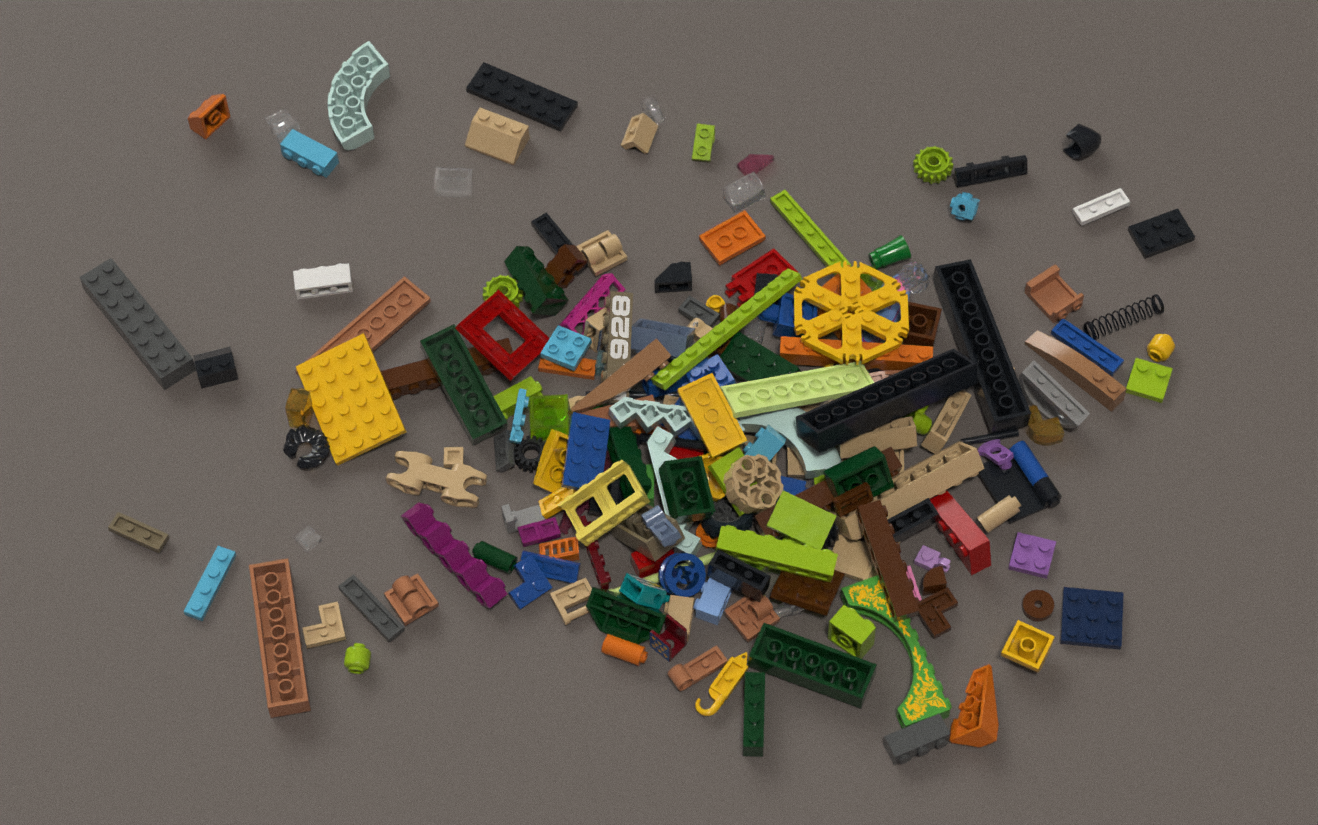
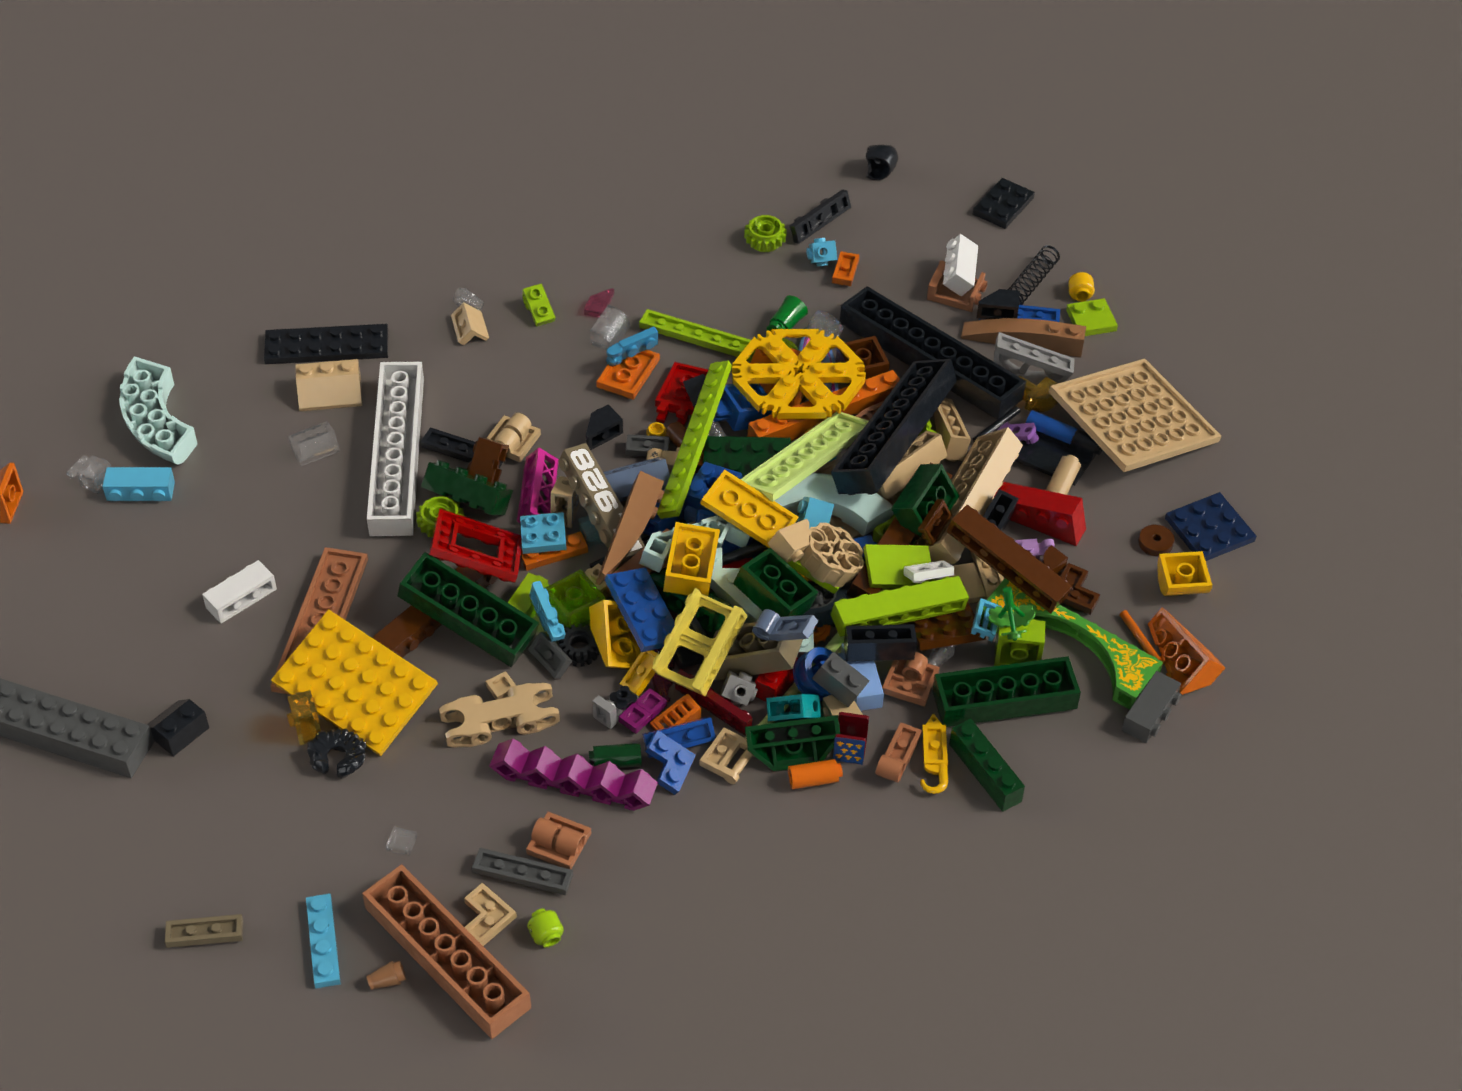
camera: 35 degrees left, 10 degrees down
(233, 633) = (386, 976): none -> medium nougat cone
(508, 218) = (395, 449): none -> white brick
(534, 518) = (623, 703): none -> black plate
(616, 553) = (733, 682): none -> light grey brick
(639, 434) = (691, 559): none -> yellow slope
(686, 589) = (840, 679): none -> dark grey brick
(722, 459) = (791, 541): none -> tan slope
(743, 219) = (632, 345): none -> dark azure hinge
(817, 537) = (933, 570): none -> white plate
(824, 610) = (983, 630): none -> medium azure tile
(841, 606) = (1001, 618): none -> bright green plant
(957, 678) = (1140, 637): none -> orange piece
(975, 231) = (845, 268): none -> orange plate
(1032, 555) = (1115, 502): medium lavender plate -> none
(1066, 277) = (960, 265): none -> white brick
(1070, 332) = (999, 305): none -> black slope
(1101, 206) = (937, 204): white plate -> none
(1104, 488) = (1134, 414): none -> tan plate

